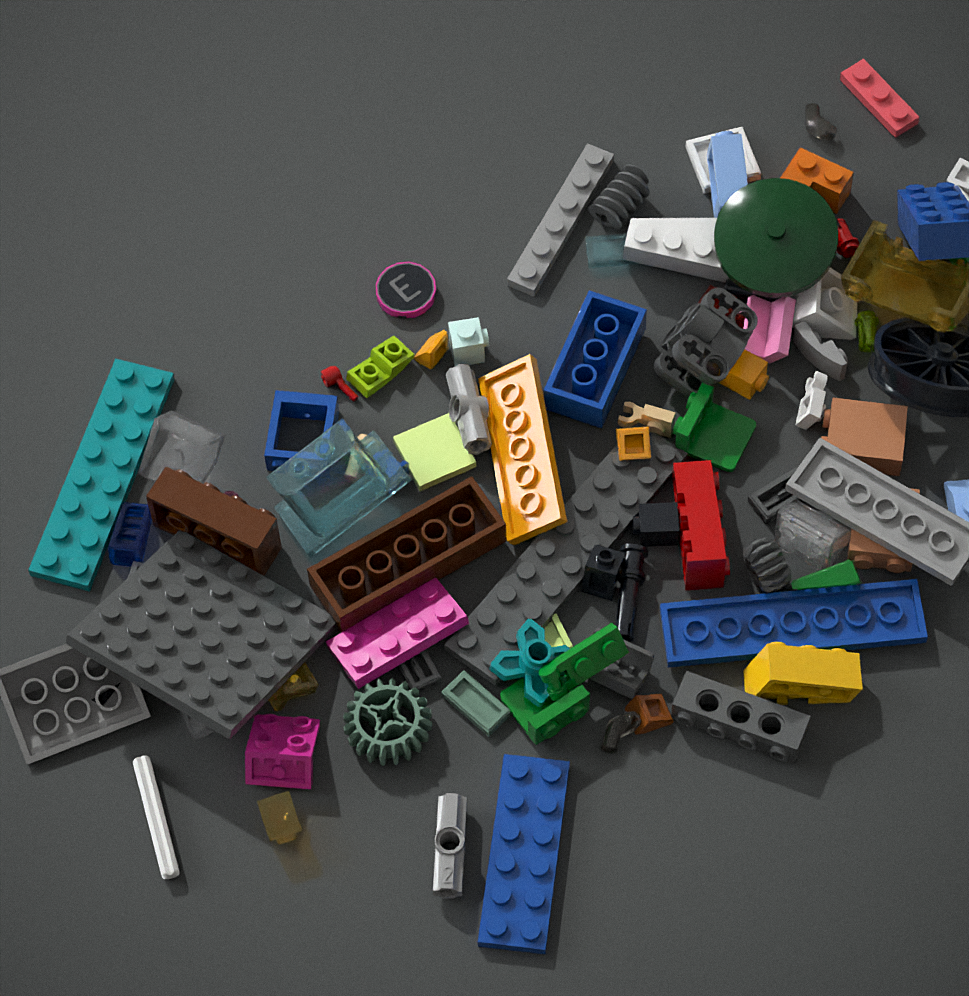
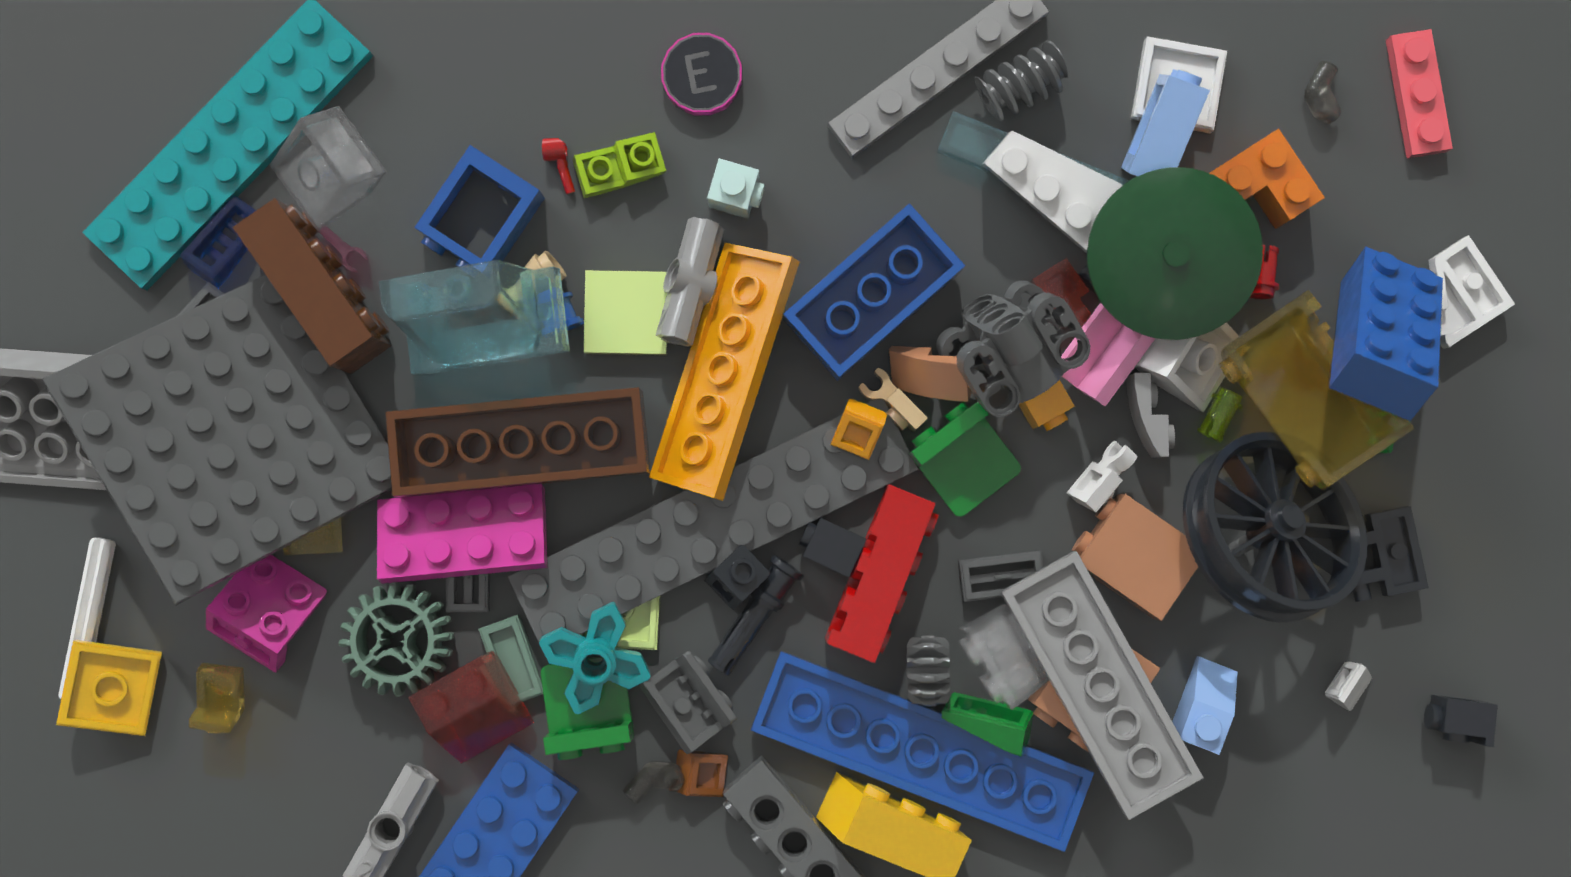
camera: 20 degrees right, 25 degrees up
(197, 850) = (109, 688): none -> yellow plate
(433, 350) = (691, 174): light orange slope -> none
(465, 738) = (472, 708): none -> clear red slope
(583, 661) = (642, 697): green plate -> none
(661, 387) = (927, 374): none -> nougat slope

